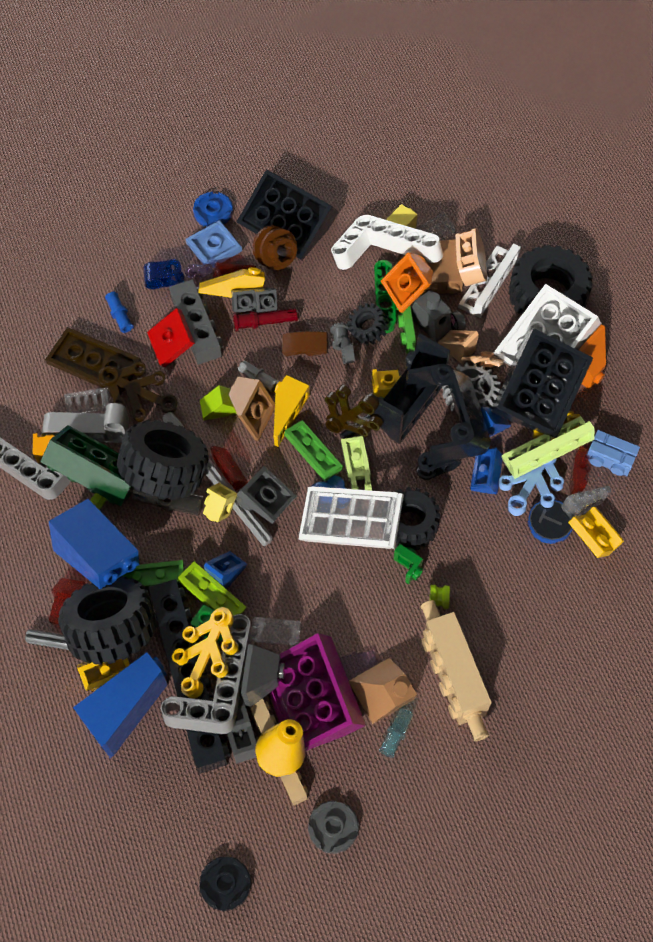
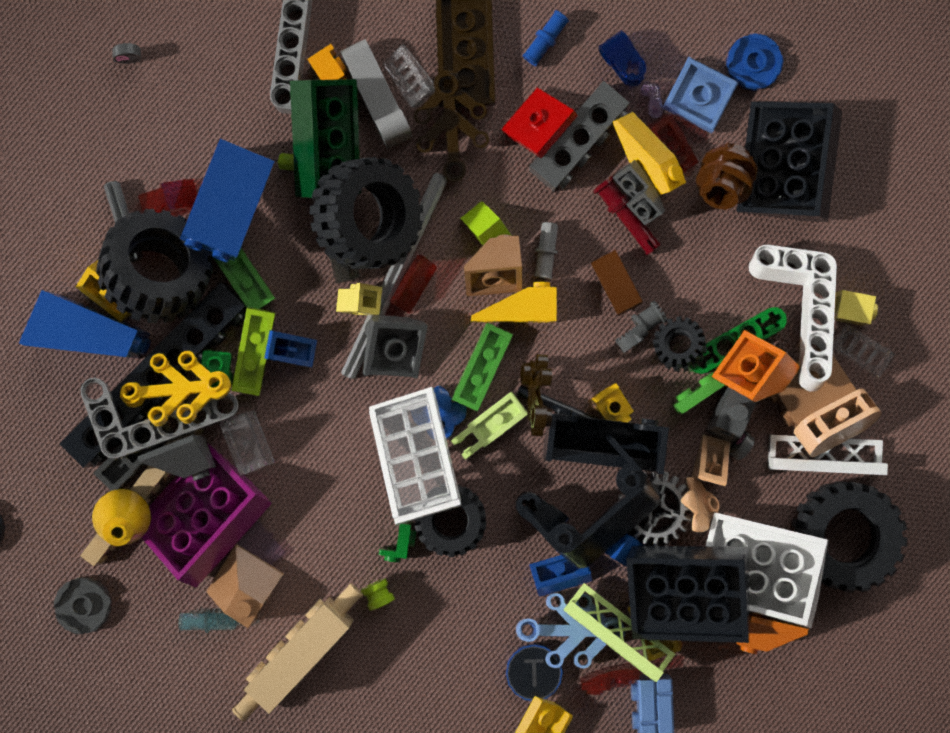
camera: 55 degrees right, 25 degrees up
(582, 502) = (565, 700): clear slope -> none

